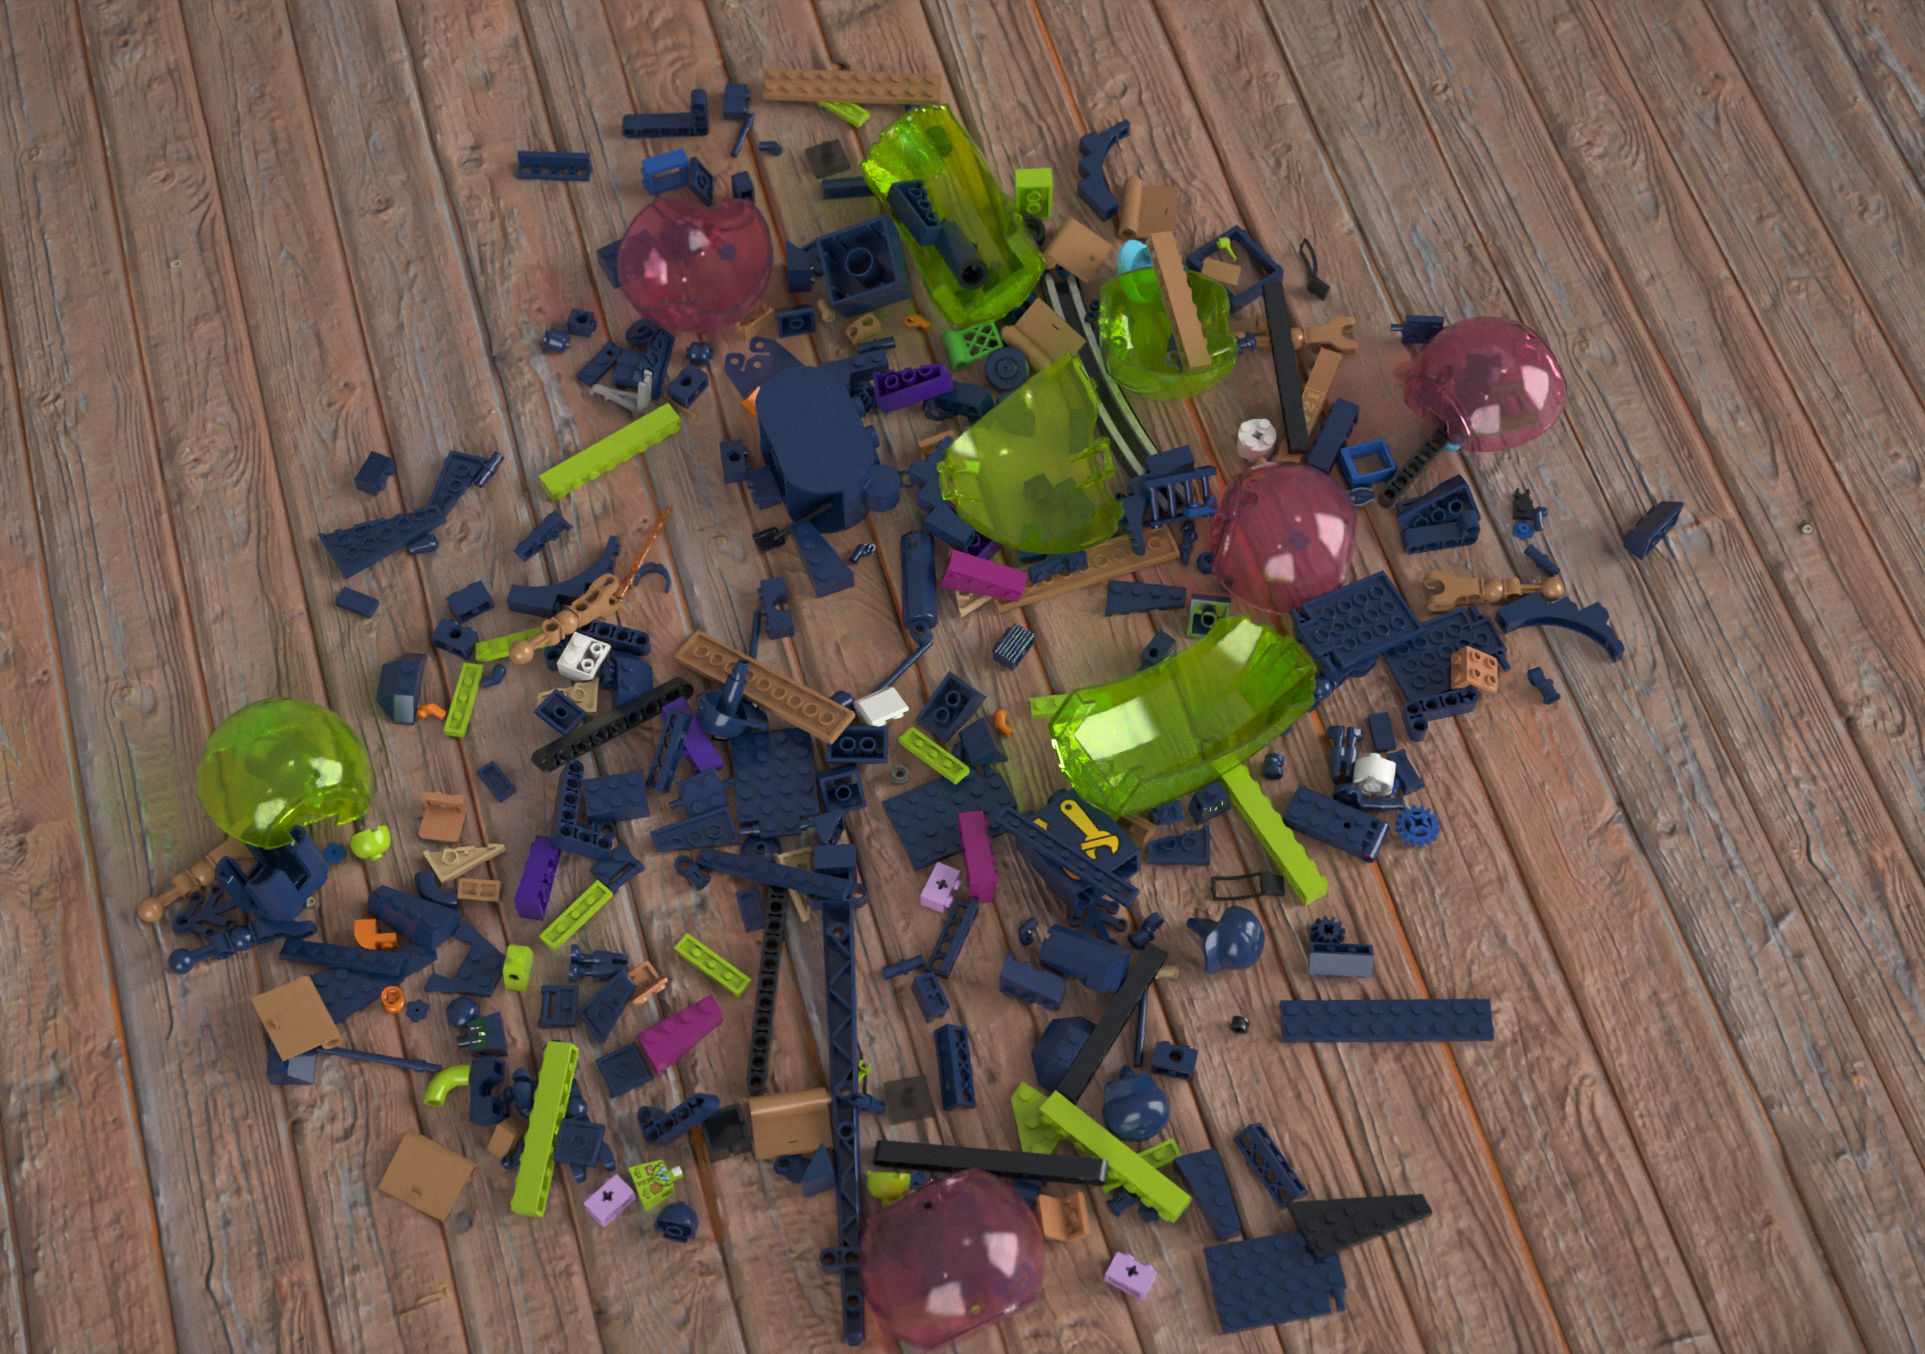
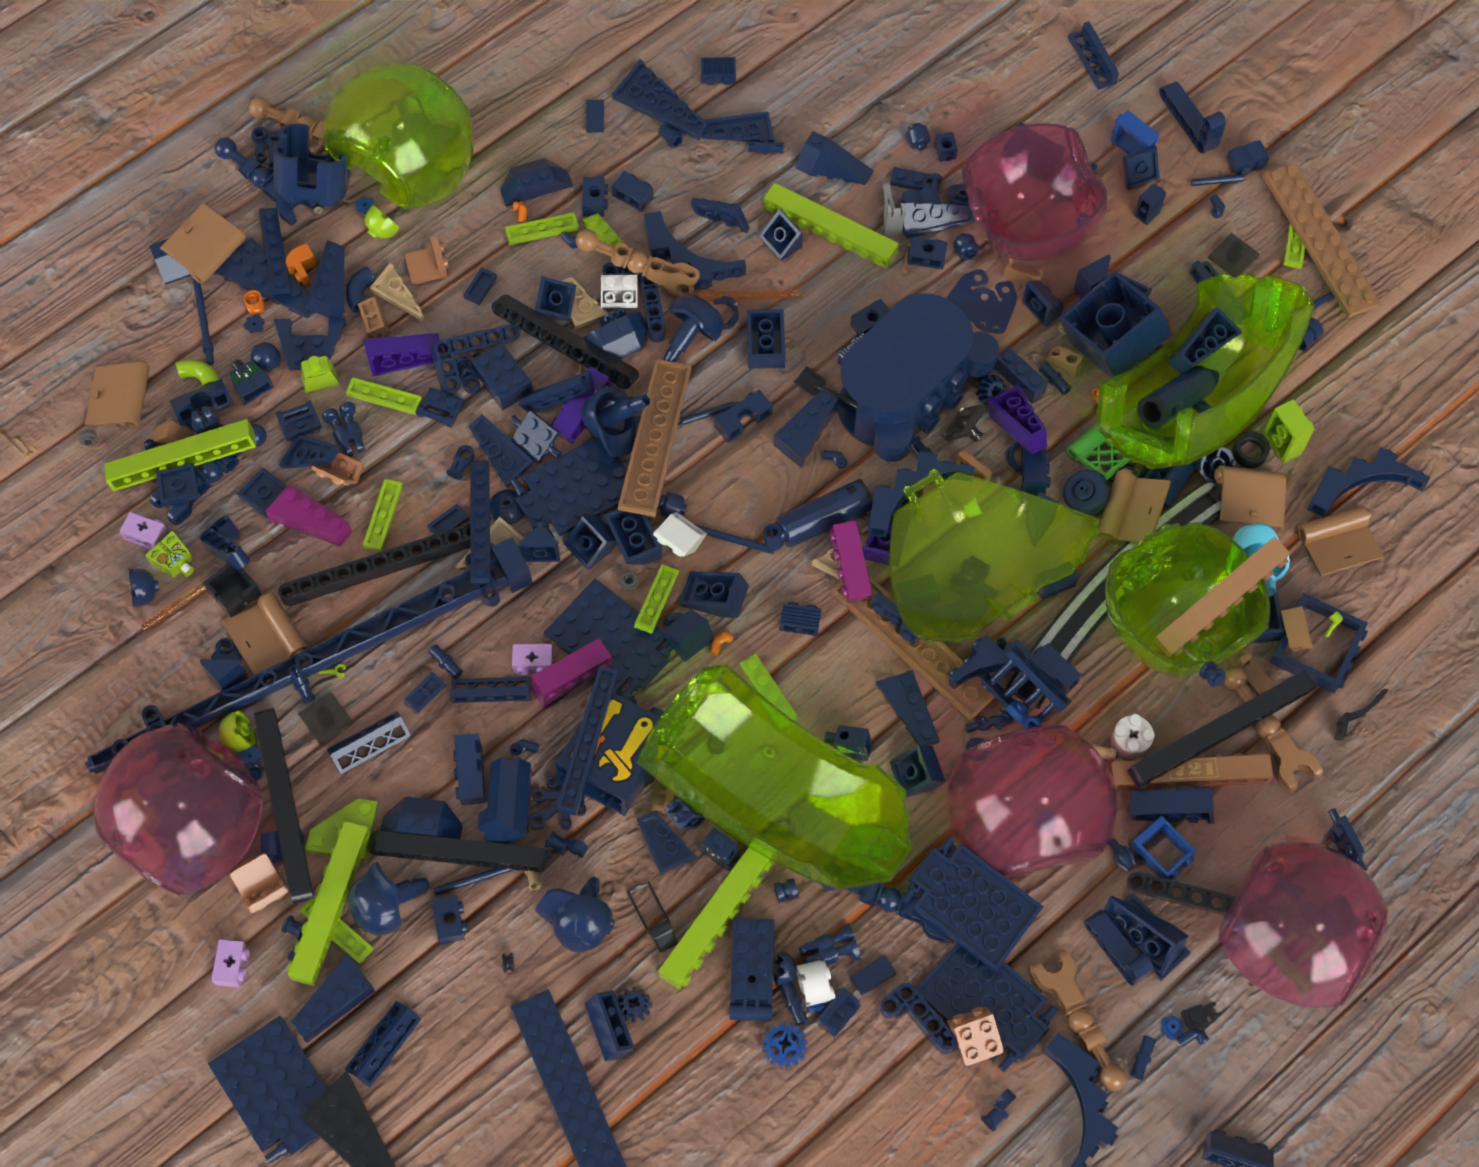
camera: 65 degrees right, 5 degrees up
(535, 423) = (828, 159): none -> dark blue wedge
(598, 495) = (782, 235): none -> dark blue slope
(655, 598) = (697, 317): none -> dark blue piece
(706, 553) = (766, 338): none -> dark blue brick
(889, 431) = (965, 423): none -> clear smoke tile

